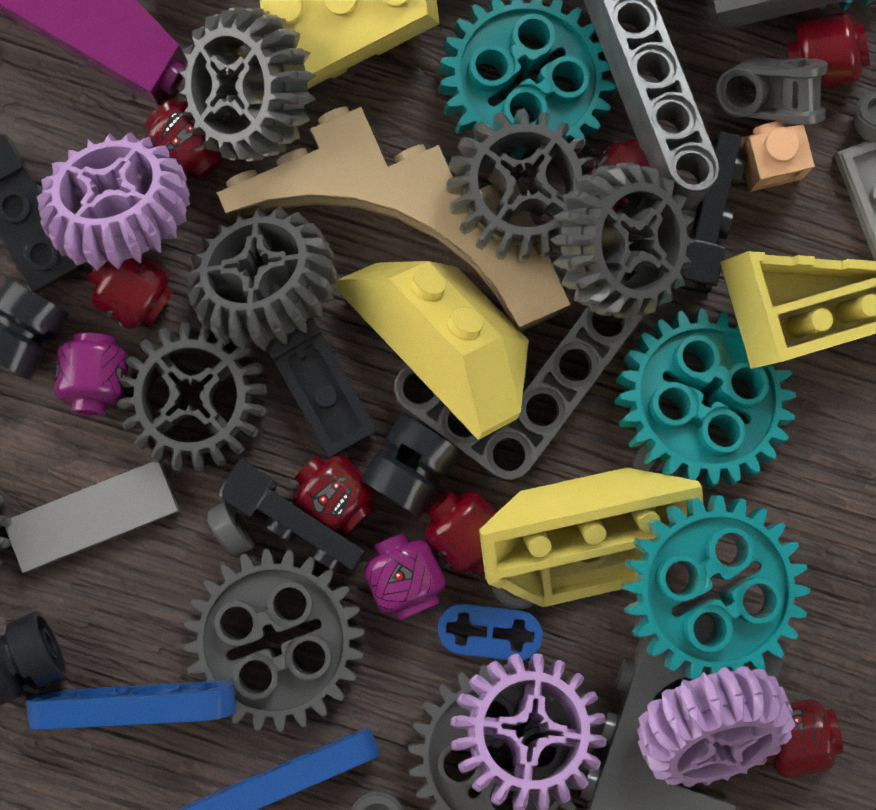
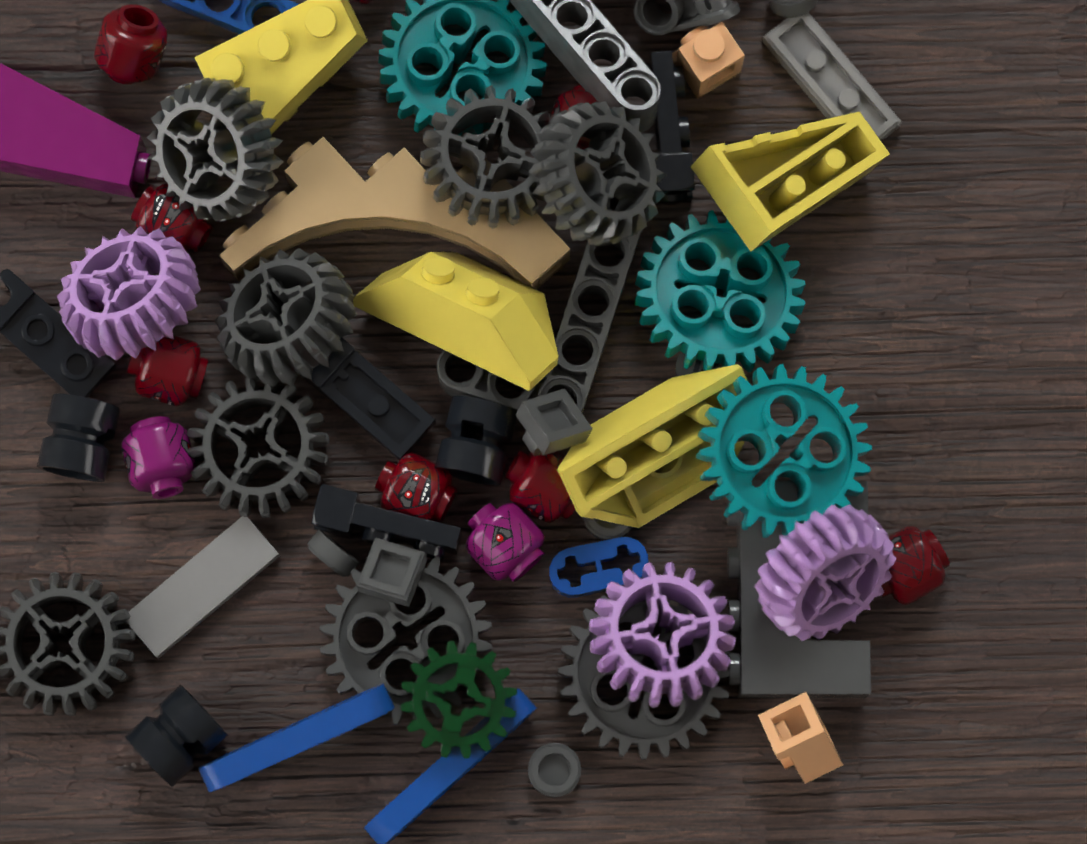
camera: 20 degrees left, 5 degrees down
(279, 712) = (465, 675): none -> dark green gear
(280, 572) = (392, 572): none -> dark grey tile
(491, 479) = (552, 423): none -> dark grey tile

